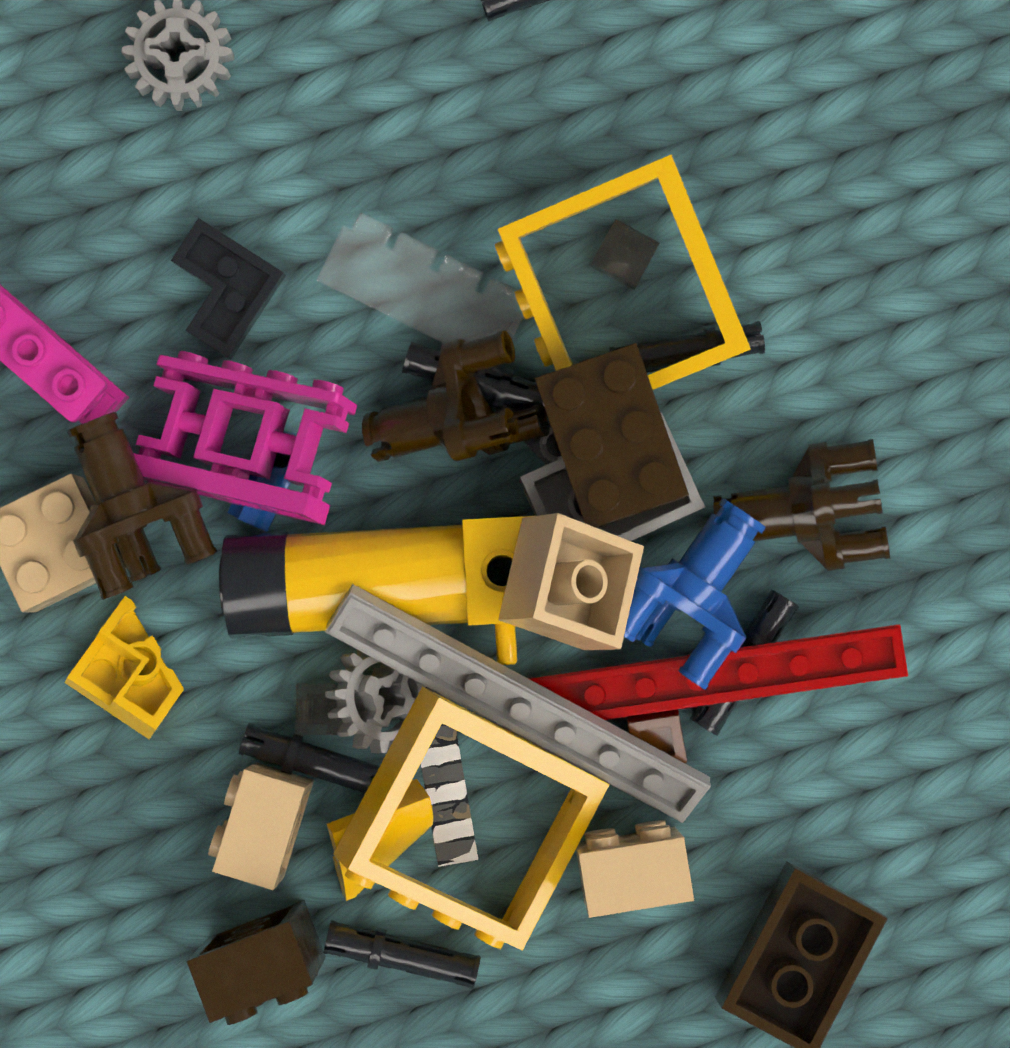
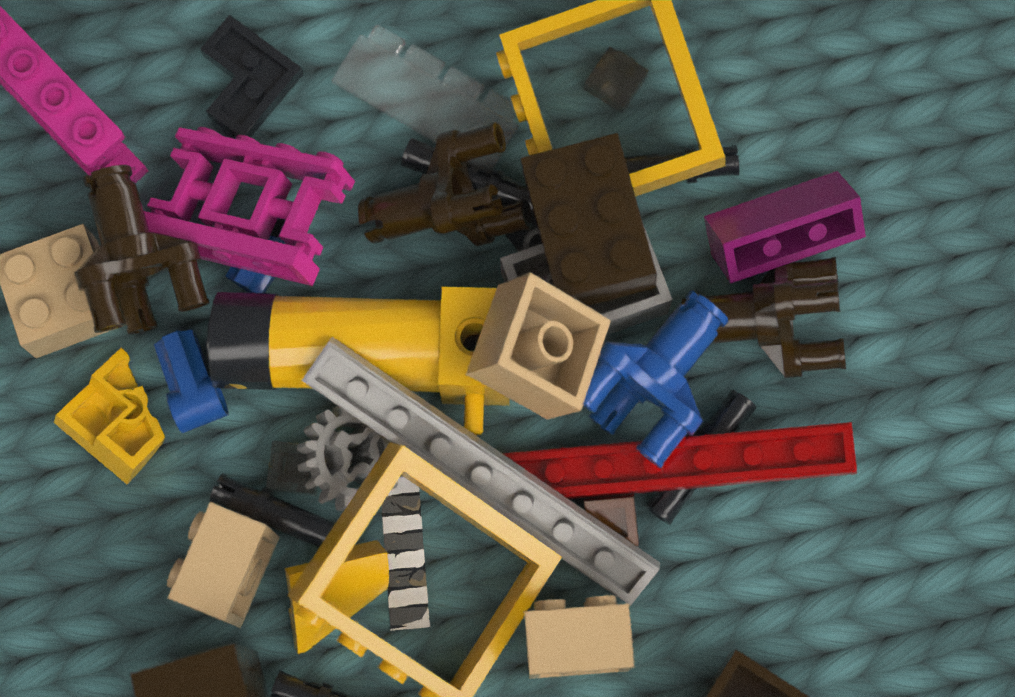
camera: 10 degrees right, 10 degrees down
(203, 629) = (191, 394): none -> blue piece
(817, 410) = (785, 226): none -> magenta brick

